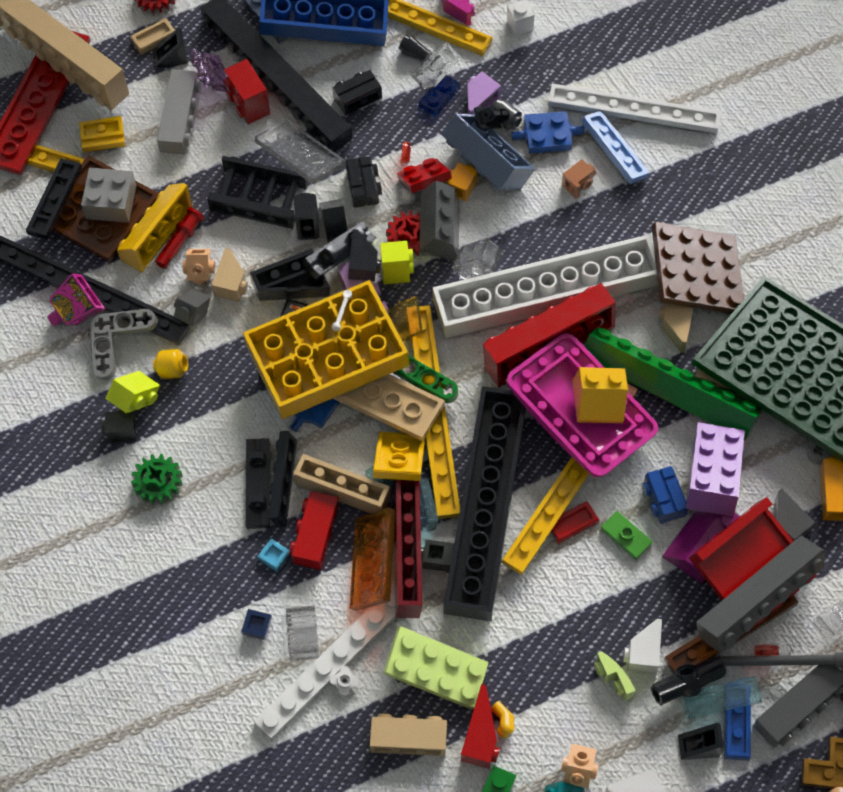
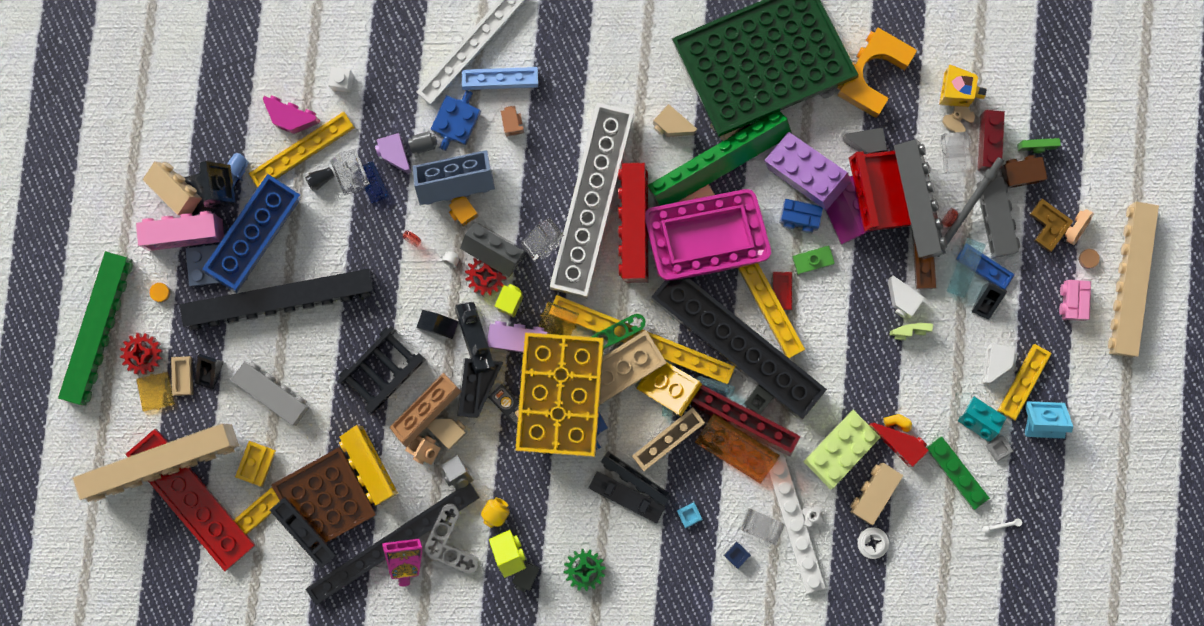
camera: 60 degrees left, 20 degrees up
(108, 195) = (323, 488): light grey brick -> none
(125, 23) = (155, 391): none -> clear yellow piece
(184, 230) = (382, 443): red pin -> none
(209, 69) = (248, 349): clear purple plate -> none
(239, 245) = (425, 409): none -> medium nougat tile
(246, 92) = (287, 331): red brick -> none
(300, 151) = (365, 319): clear tile -> none
(306, 216) = (429, 345): black brick -> none
(314, 530) = (689, 477): red brick -> none
(347, 295) = (529, 356): white hinge -> none
(351, 752) = (881, 547): none -> white gear
(357, 92) = (334, 245): black brick -> none
(362, 181) = (419, 285): black brick -> none
(363, 259) = (496, 325): black slope -> none
(421, 176) = (443, 236): red plate -> none
(490, 117) = (425, 158): black hinge -> none
(579, 766) = (962, 391): light nougat brick -> none
(600, 395) = (712, 219): yellow slope -> none
(688, 680) = (943, 291): black piece -> none
(697, 268) = (641, 83): plate -> none

